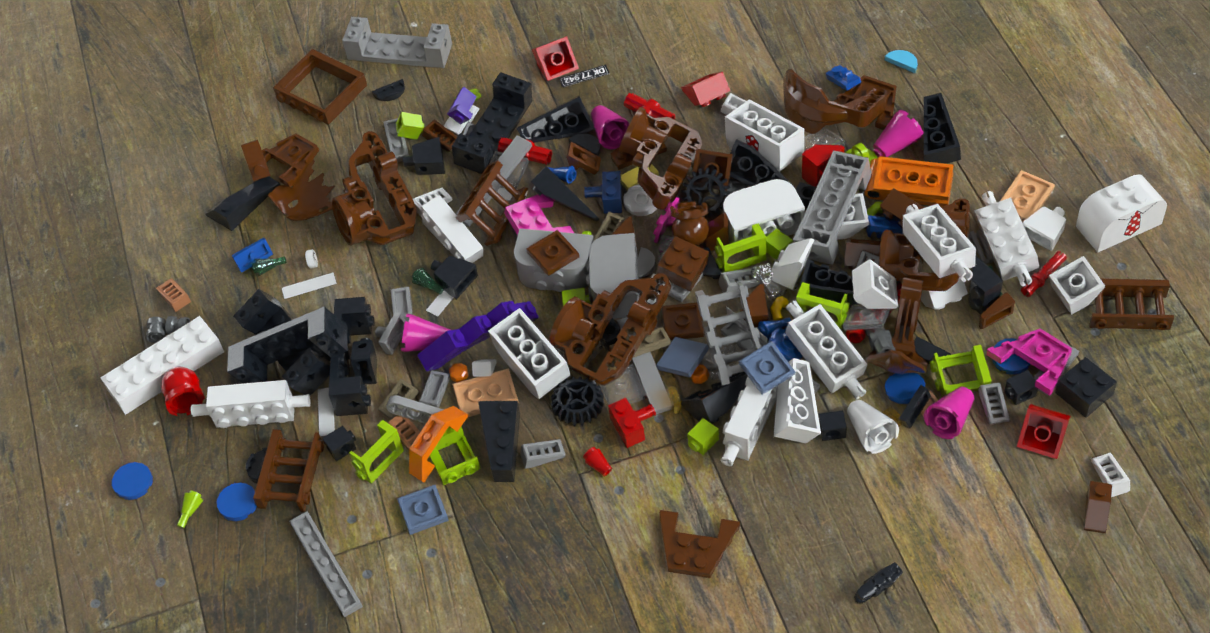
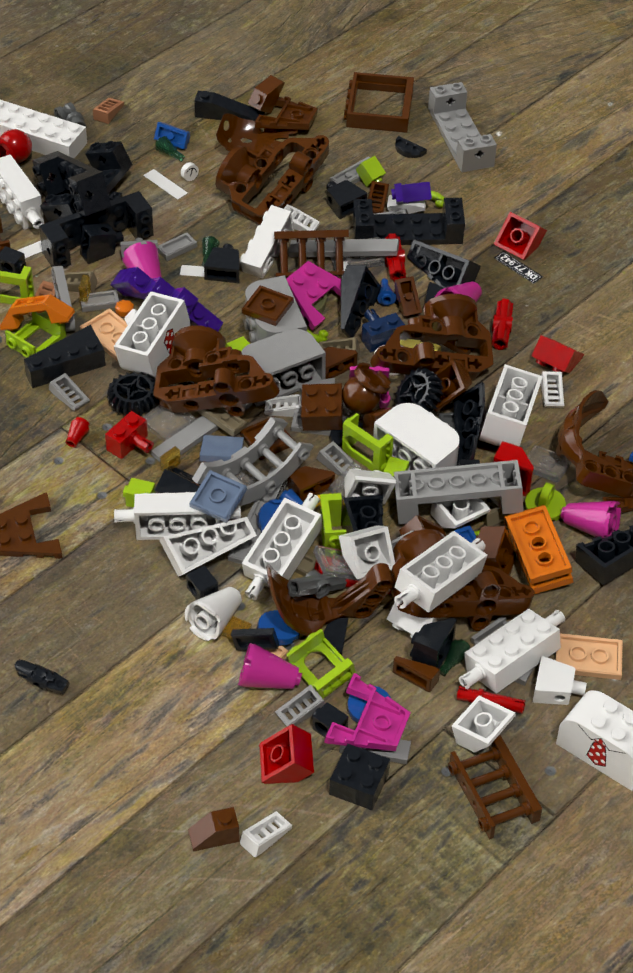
camera: 55 degrees right, 5 degrees down
(421, 391) = (84, 288): none -> clear yellow tile

